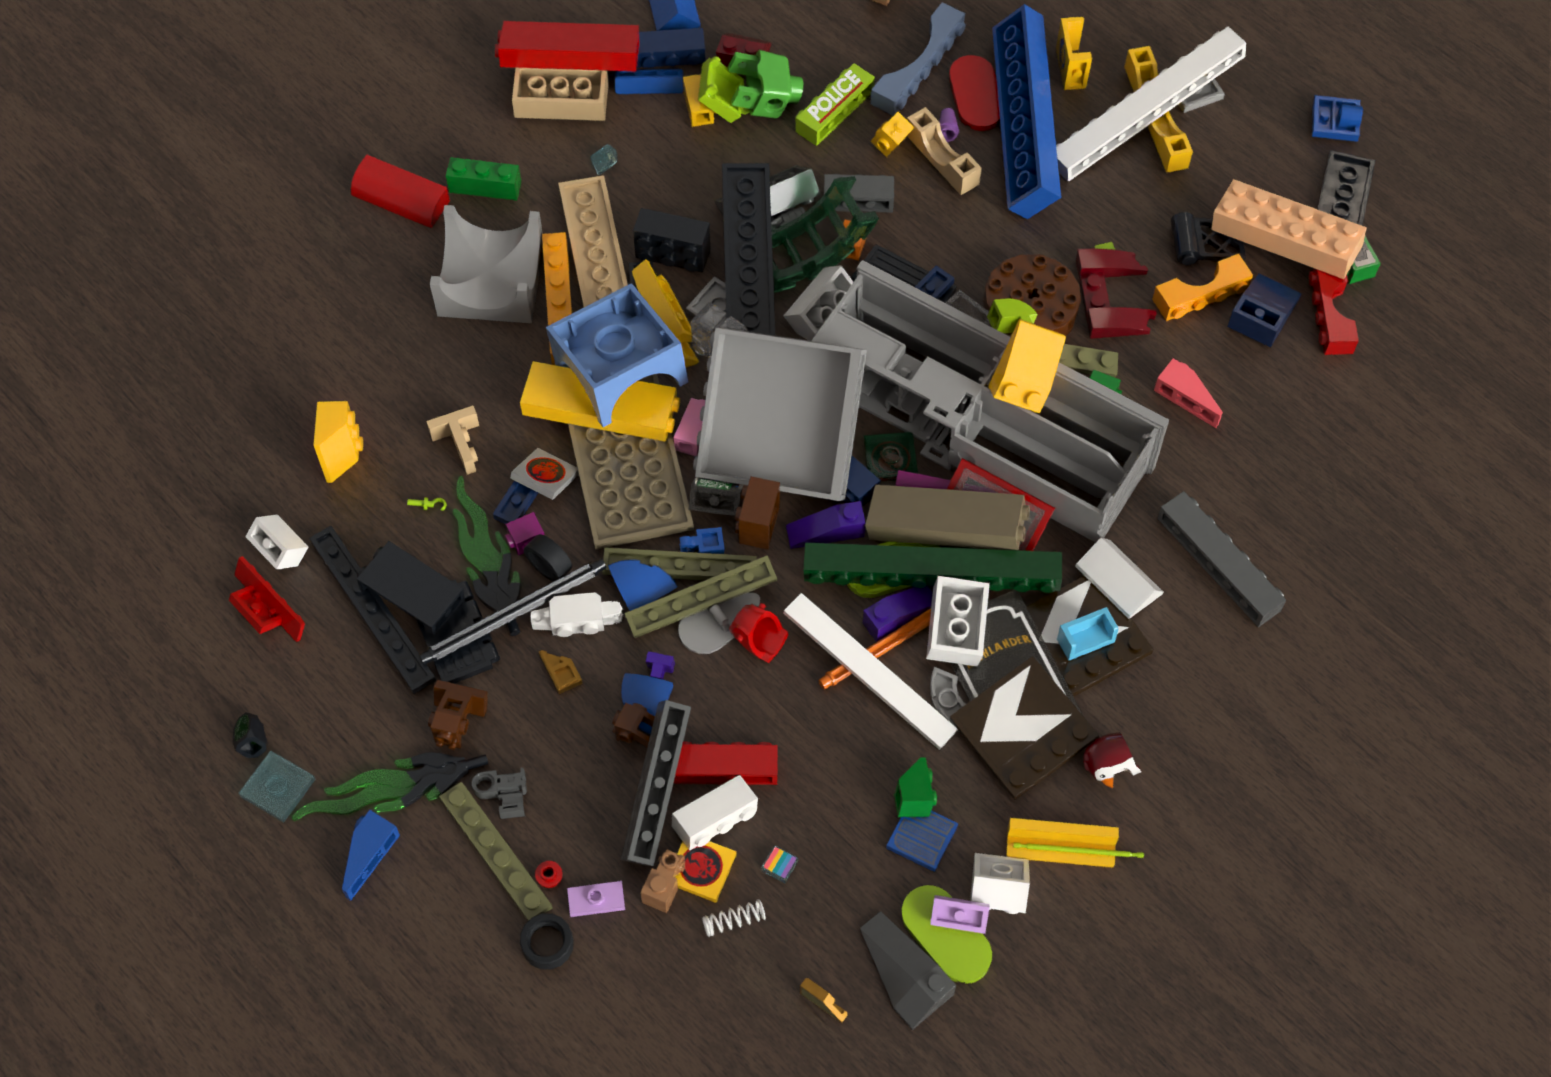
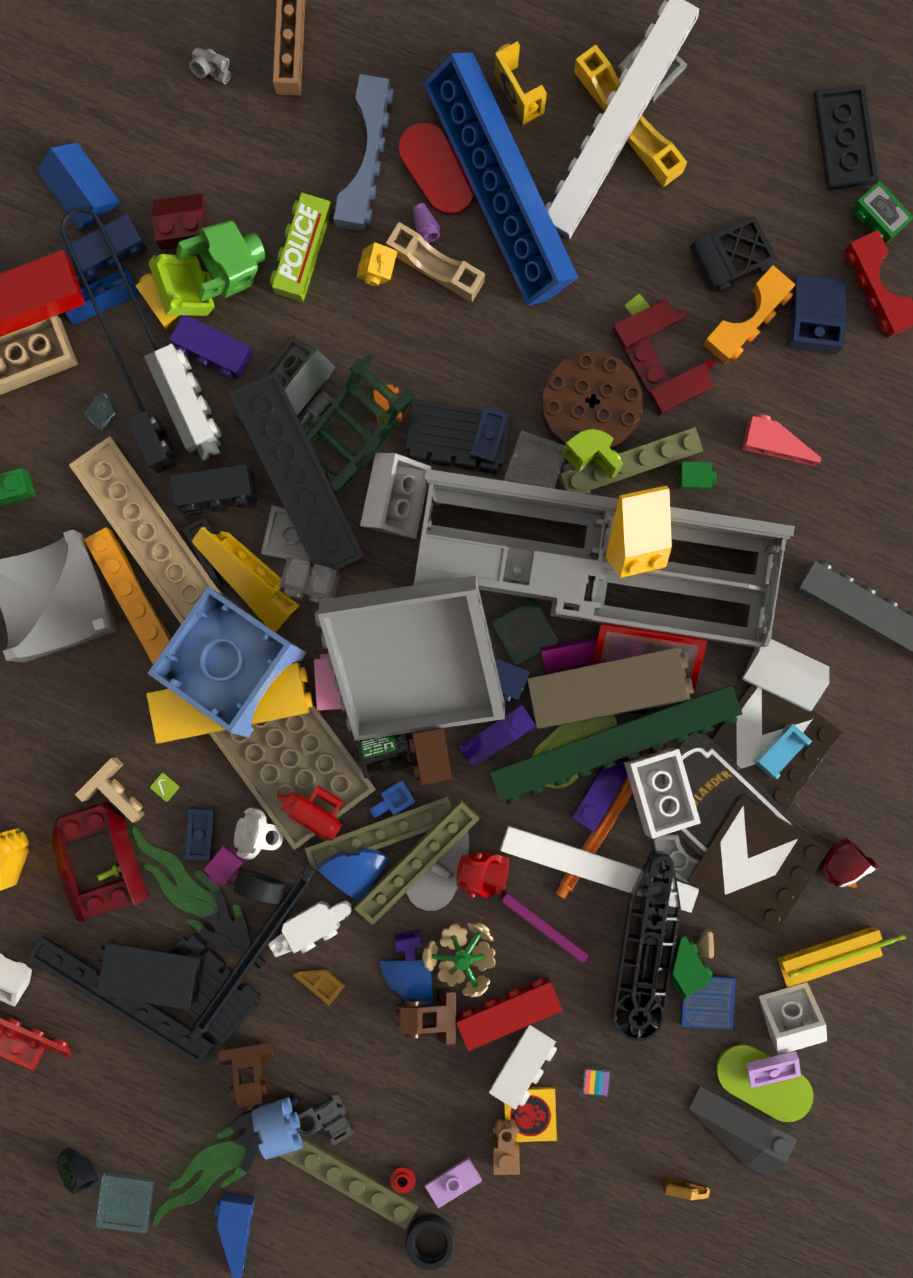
camera: 20 degrees left, 25 degrees up
(414, 520) = (110, 895): none -> dark red wedge
(456, 760) = (277, 1128): none -> medium blue brick
(505, 457) = (164, 787): none -> lime sticker
(544, 473) = (212, 796): light grey tile -> none
(566, 515) = (251, 834): none -> white tile
(627, 519) = (311, 815): none -> red piece
(656, 783) = (462, 1072): dark grey brick -> none
(680, 152) = (173, 380): none -> piece
(704, 681) = (454, 965): none -> tan plant
(709, 924) = (562, 1168): white piece -> none
(720, 140) = (211, 347): none -> dark purple brick
(794, 702) = (544, 927): none -> magenta tile
(868, 191) = (381, 342): dark grey brick -> none
(893, 742) = (649, 933): none -> black beam
(942, 780) = (705, 944): none -> tan slope
(1288, 228) = (815, 218): light nougat brick -> none
(1336, 118) = (809, 47): blue plate -> none

